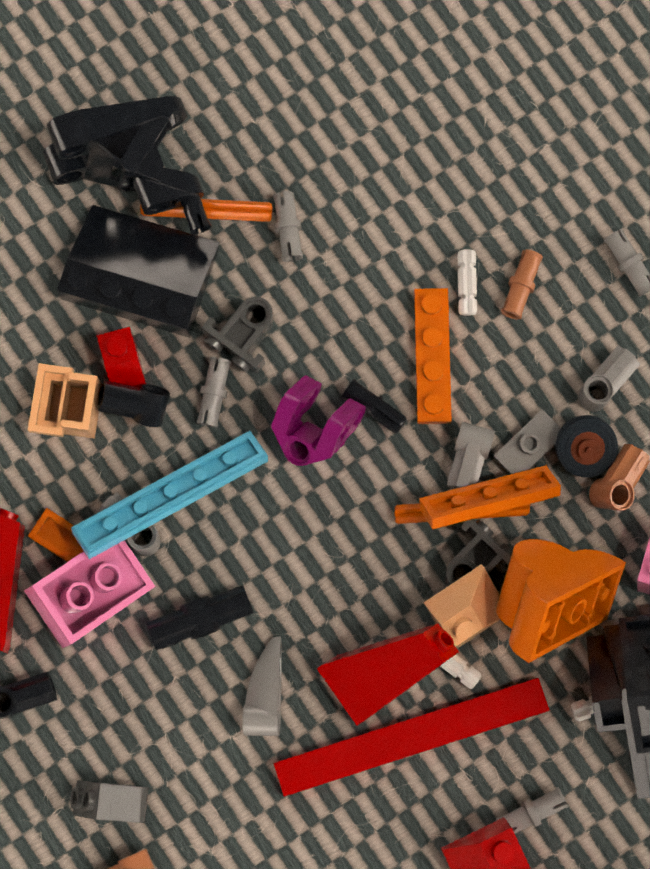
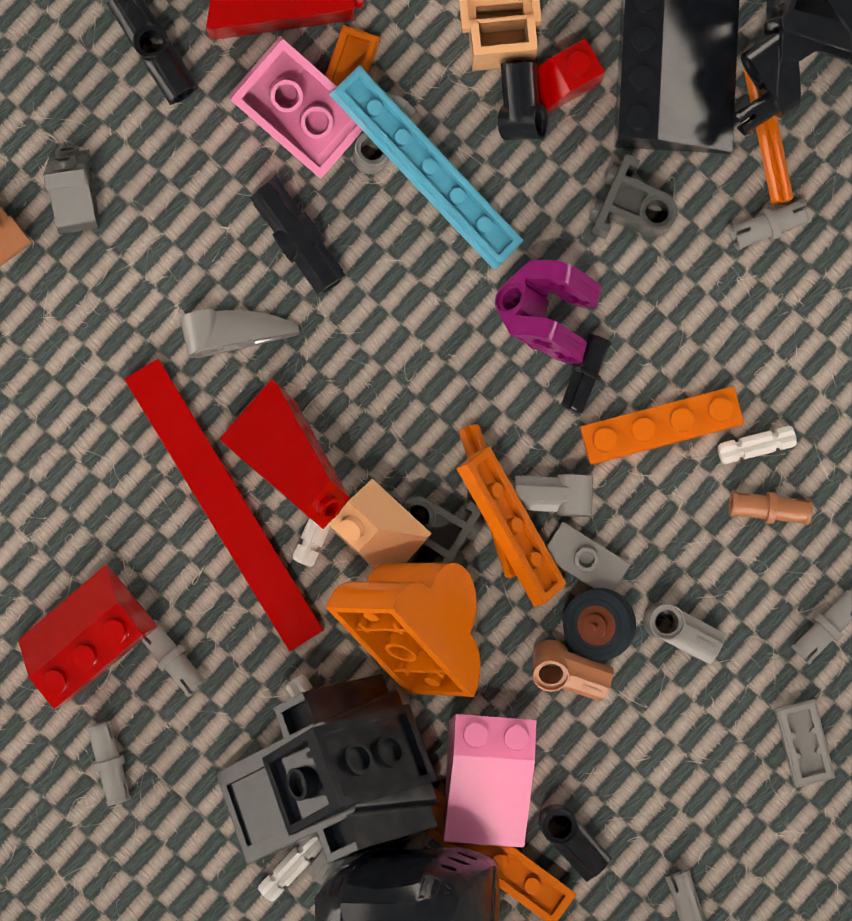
camera: 70 degrees right, 5 degrees up
(213, 392) = (556, 188): light grey pin -> none

